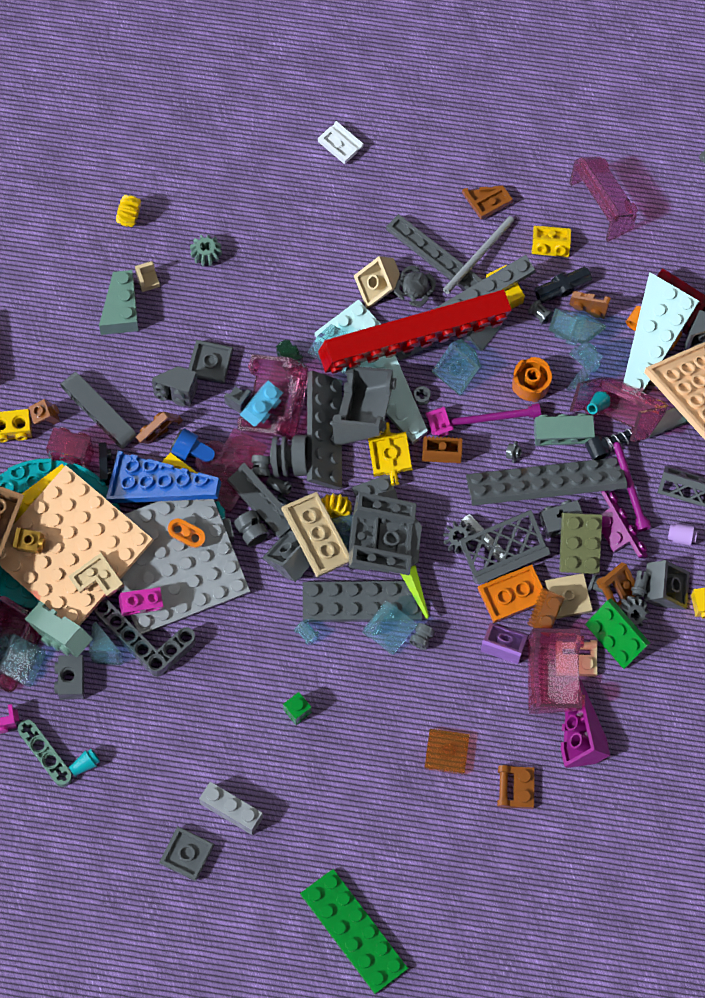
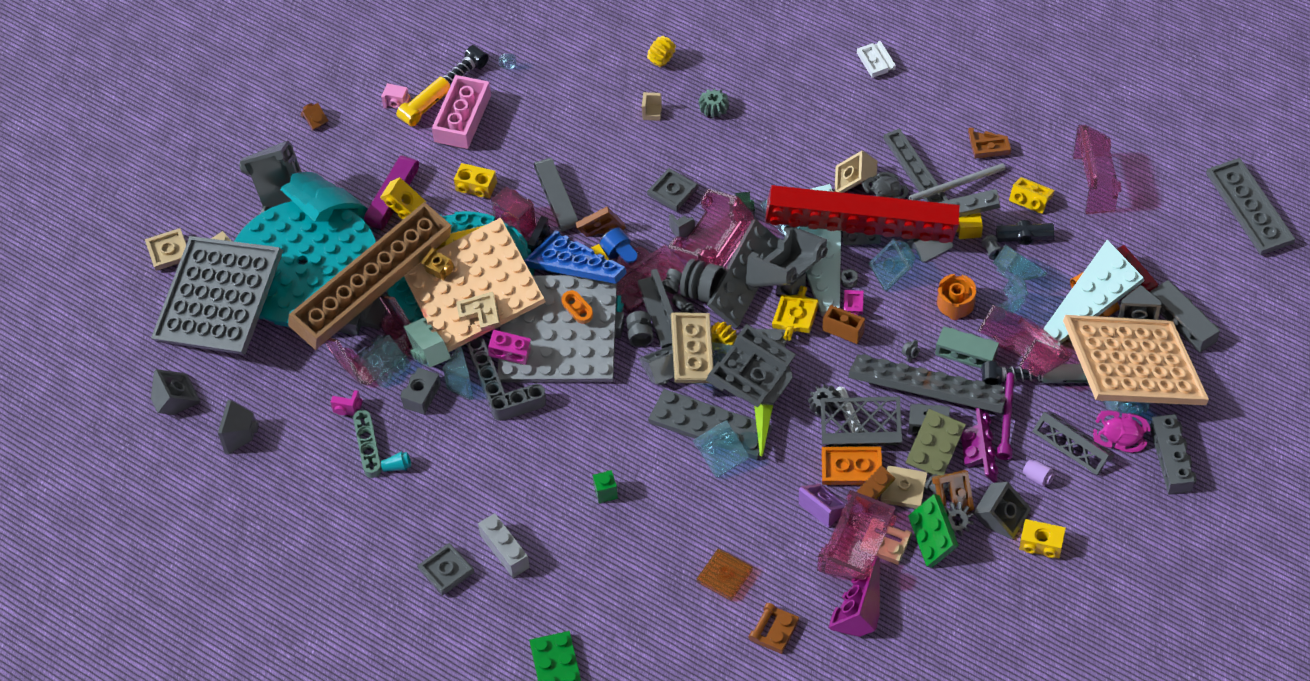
camera: 30 degrees right, 15 degrees down
(44, 411) = (509, 177): dark orange bracket -> none
(120, 305) = (616, 121): sand green wedge -> none
(176, 385) = (631, 194): dark grey slope -> none
(261, 403) = (697, 231): medium azure brick -> none
(307, 632) = (647, 432): clear light blue bush -> none
(422, 636) = (749, 470): dark grey wheel -> none
(532, 411) = (948, 322): magenta piece -> none
(588, 303) = (1041, 254): dark orange wing -> none
(599, 402) = (1010, 334): teal cone -> none
(640, 584) = (975, 496): dark grey pin -> none

